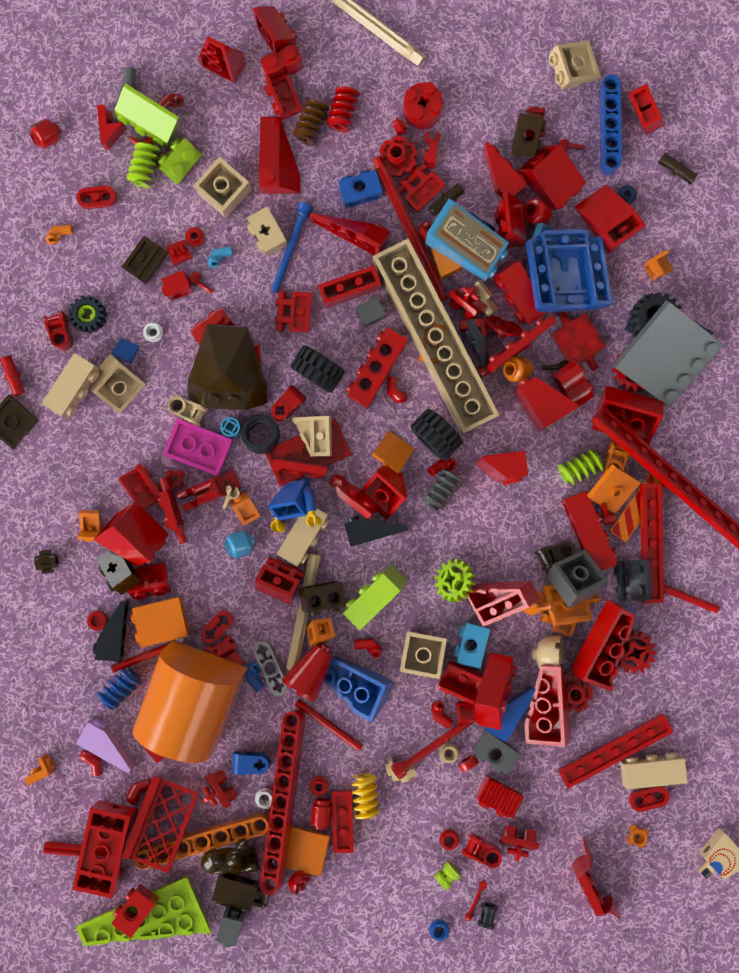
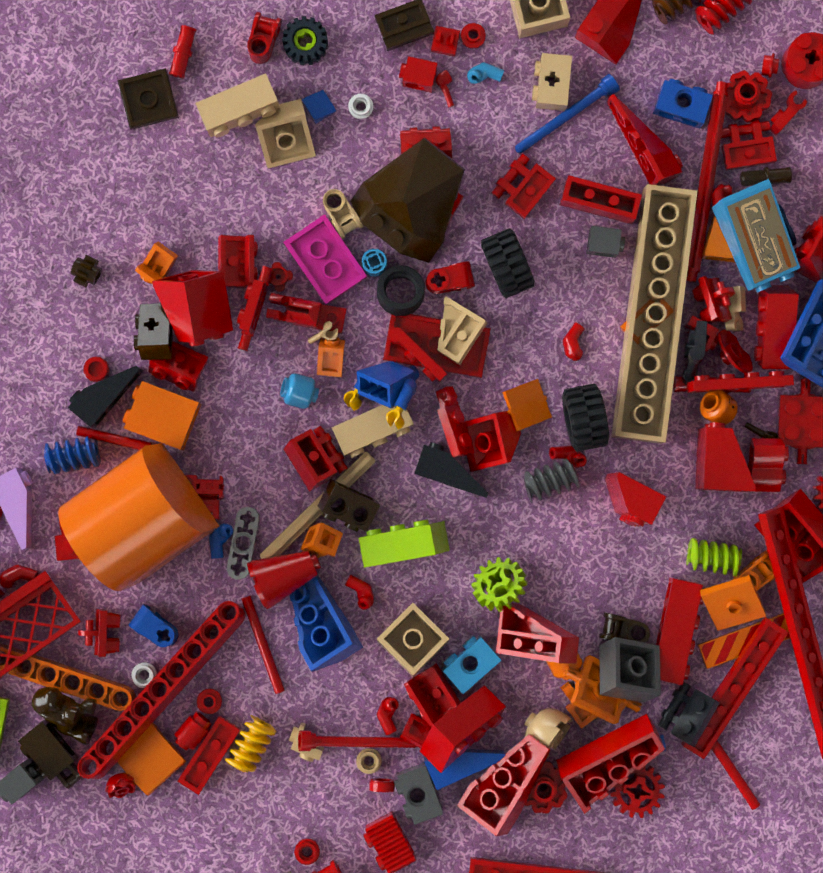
camera: 30 degrees right, 0 degrees up
(220, 629) = (218, 467): red beam -> none
(385, 339) = (608, 292): red brick -> none
(608, 517) = (707, 630): red hand -> none

